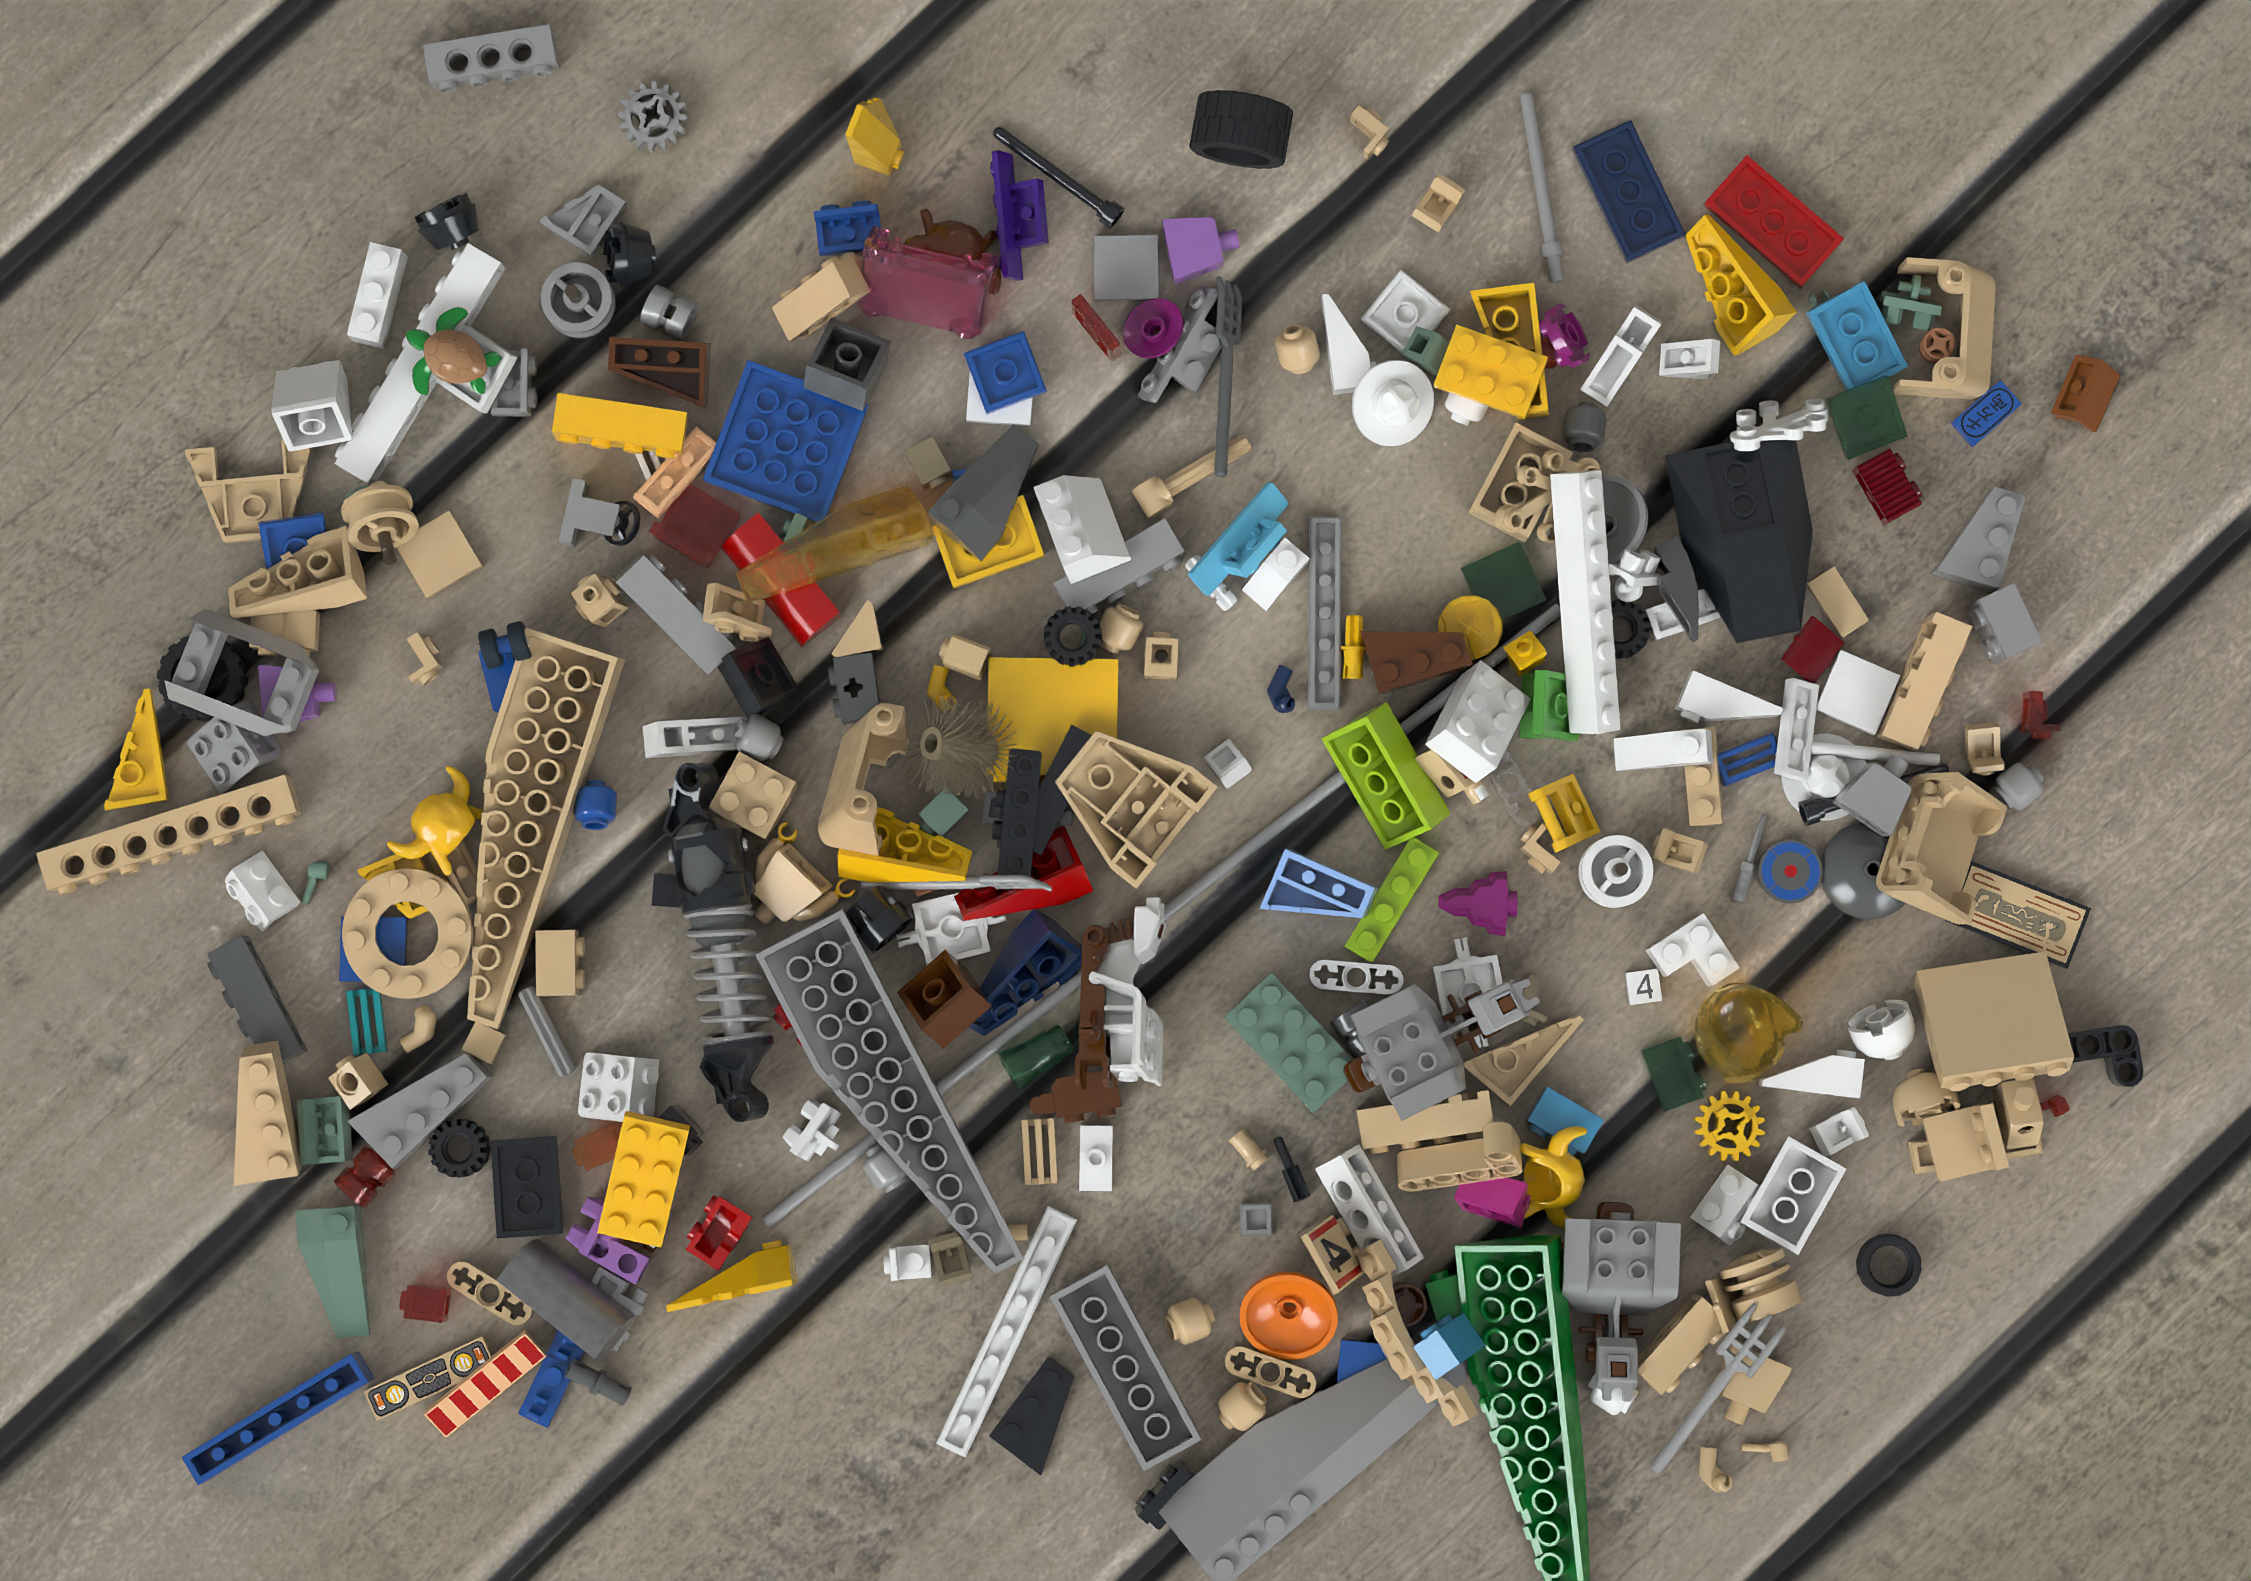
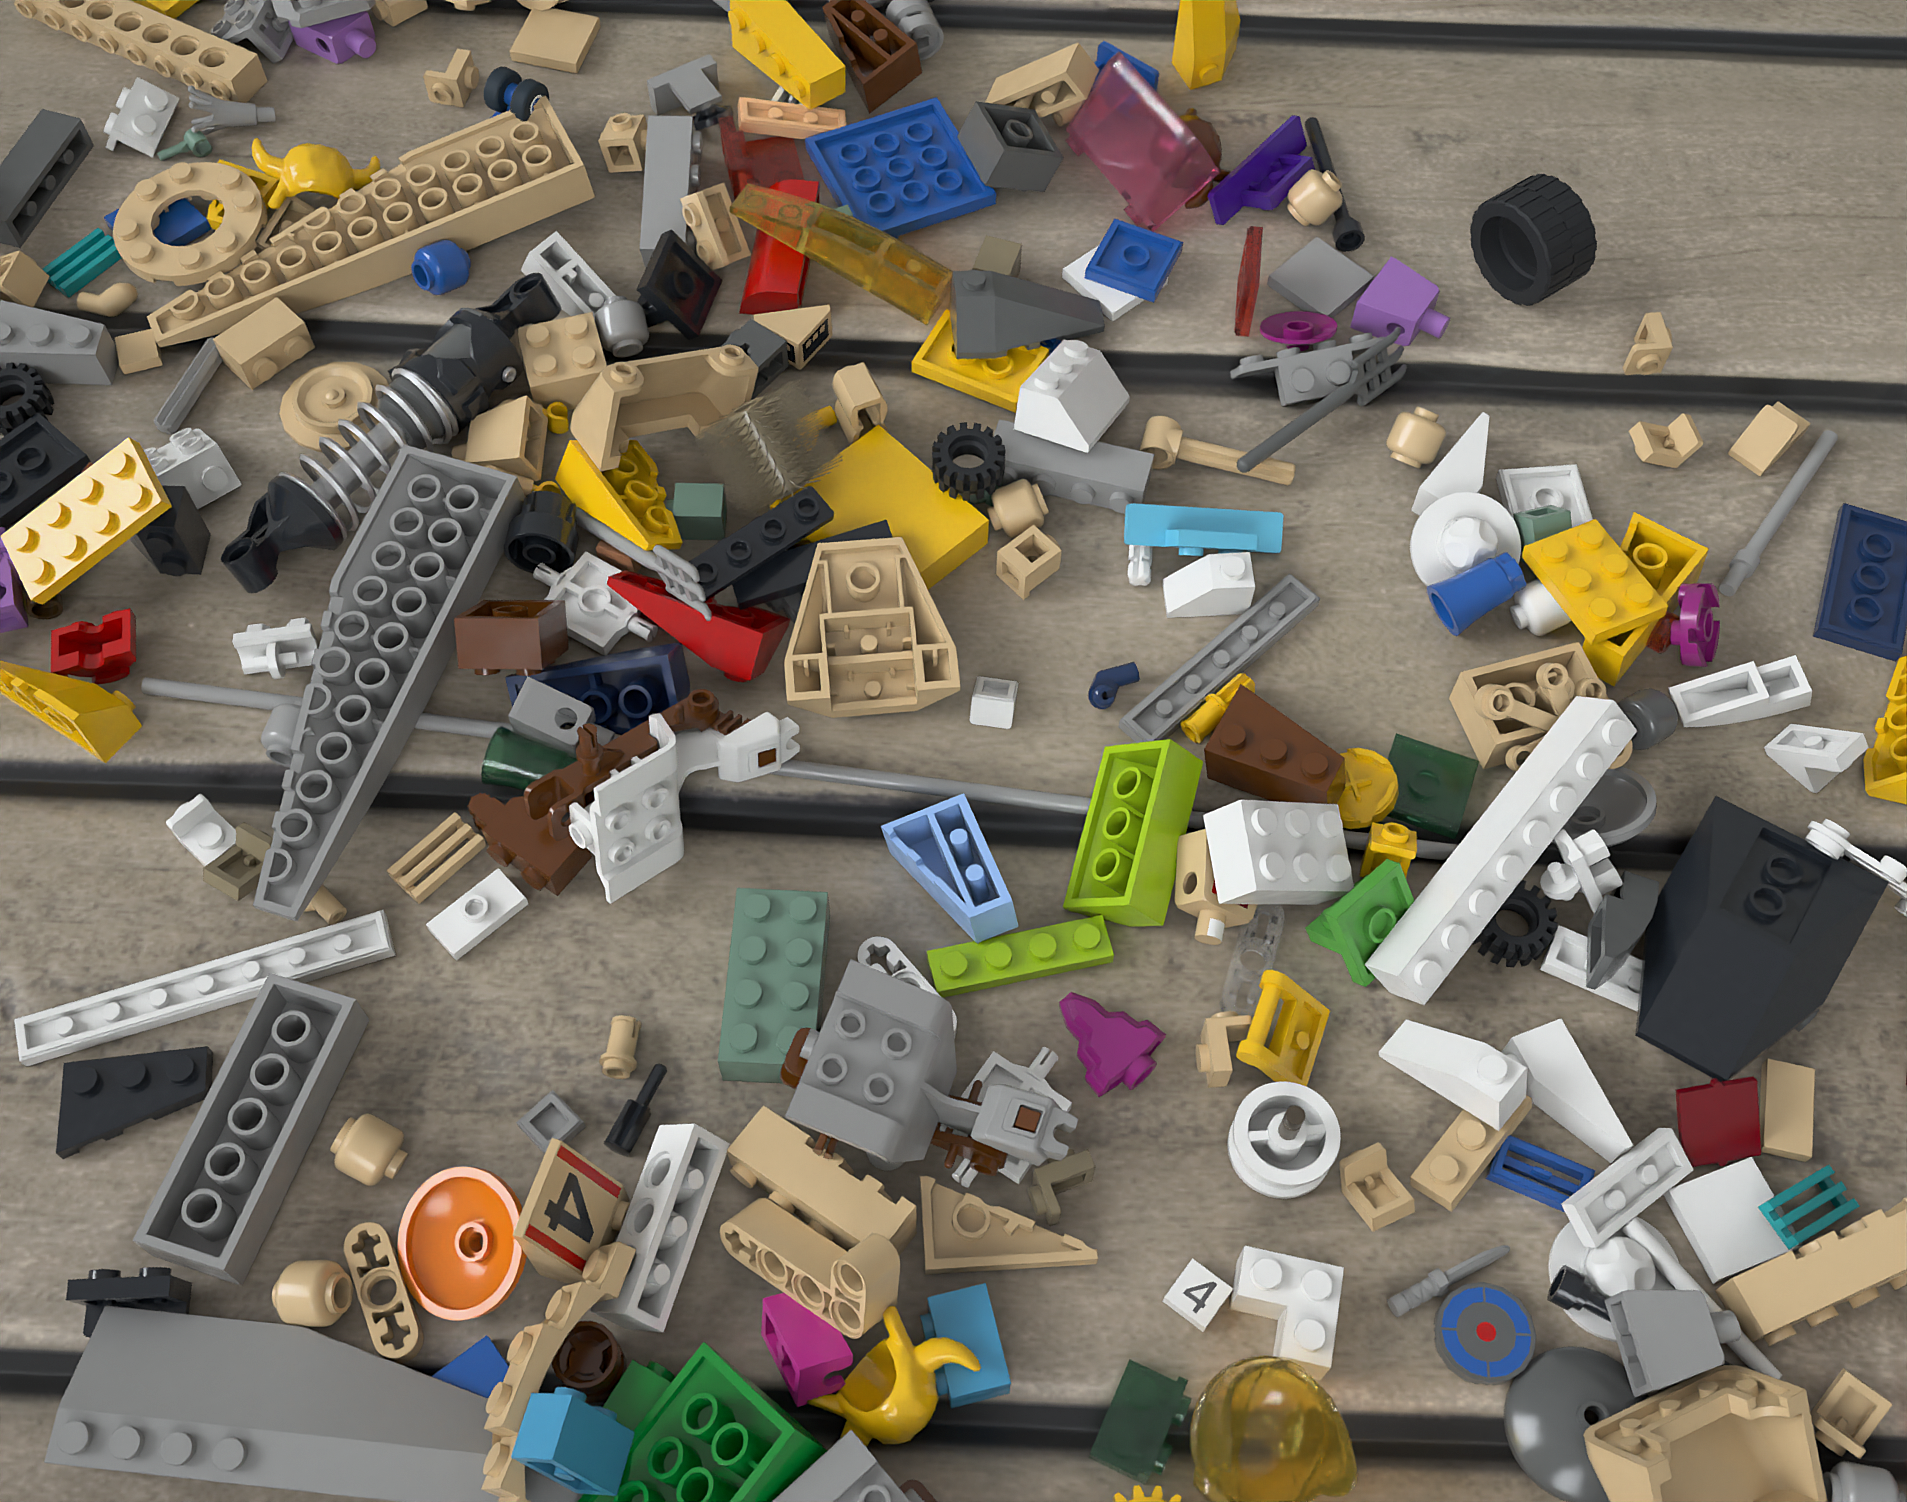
camera: 40 degrees right, 25 degrees down
(312, 833) = (226, 113): none -> light grey piece
(644, 955) = (326, 395): none -> tan piece
(1017, 1026) = (543, 711): none -> light grey torso
(1068, 210) = (1315, 197): none -> tan head
(1428, 434) = (1475, 592): none -> blue plant
(1492, 133) = (1768, 437): none -> tan slope
(1893, 628) = (1830, 1192): none -> teal tile

